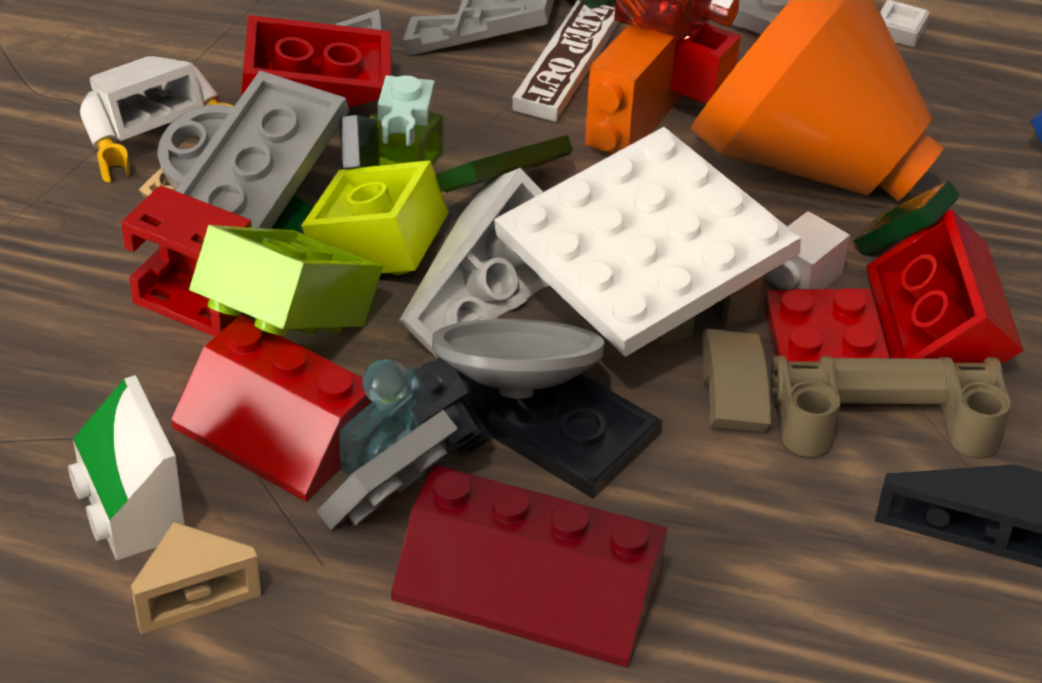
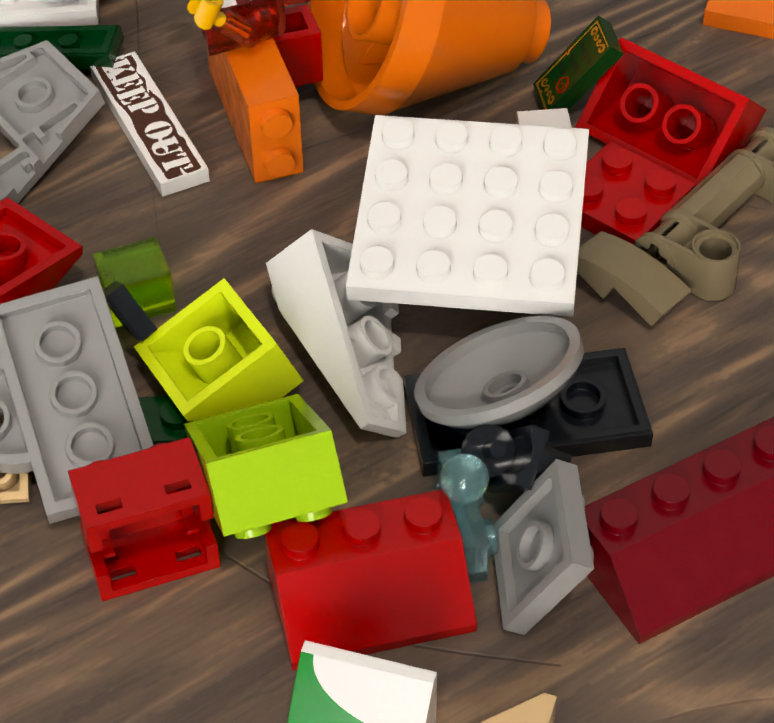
camera: 45 degrees left, 5 degrees up
(403, 105) = (123, 247): light aqua plate -> none
(499, 164) = (257, 241): dark green tile -> none

